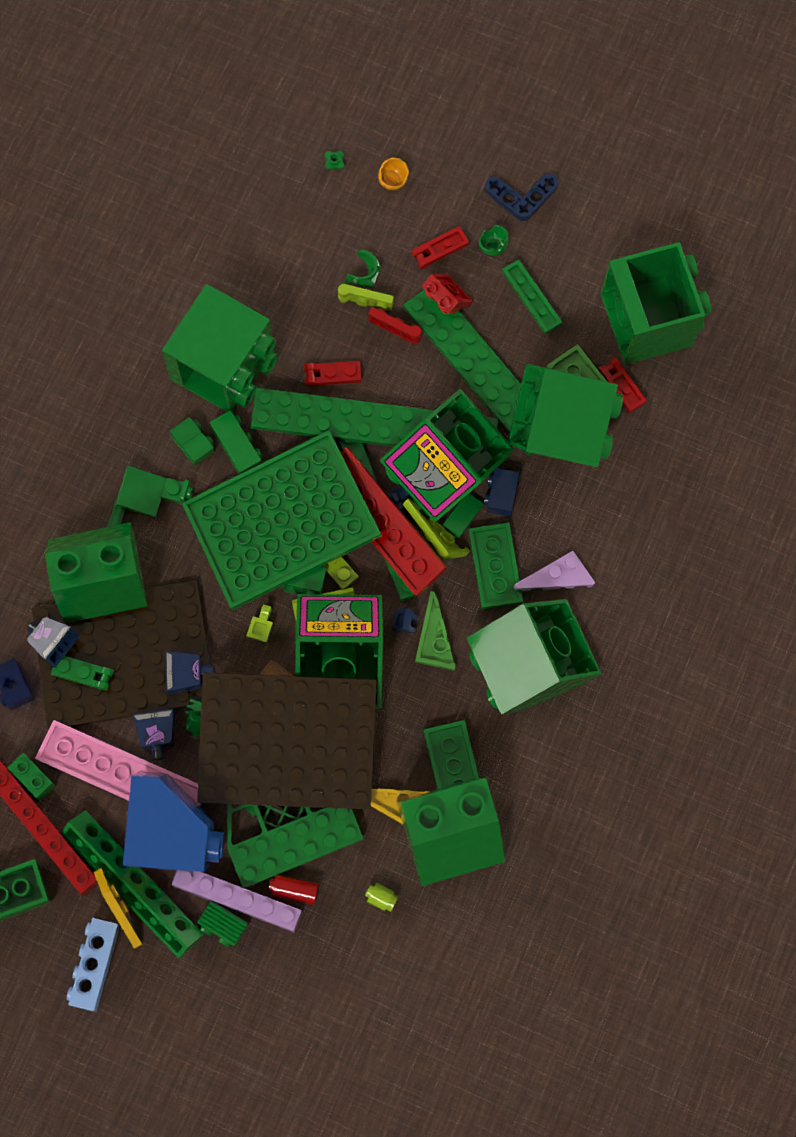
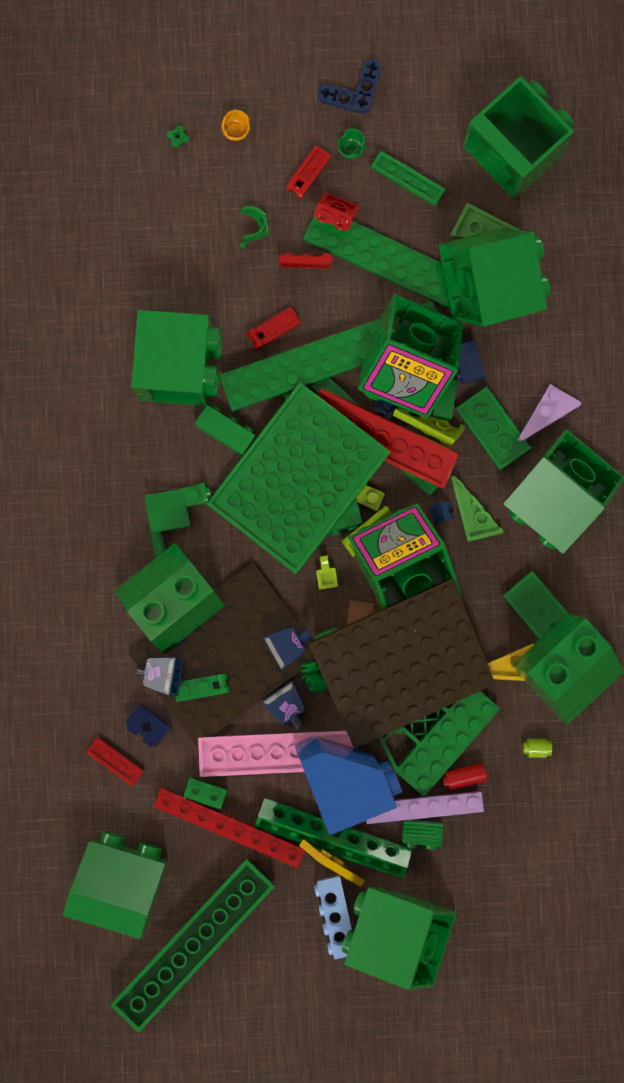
camera: 25 degrees left, 10 degrees up
(143, 1014) = (398, 938): none -> green brick
(192, 441) = (187, 446): green brick -> none
(365, 297) = (268, 248): lime plate -> none
(631, 394) = (521, 218): red plate -> none

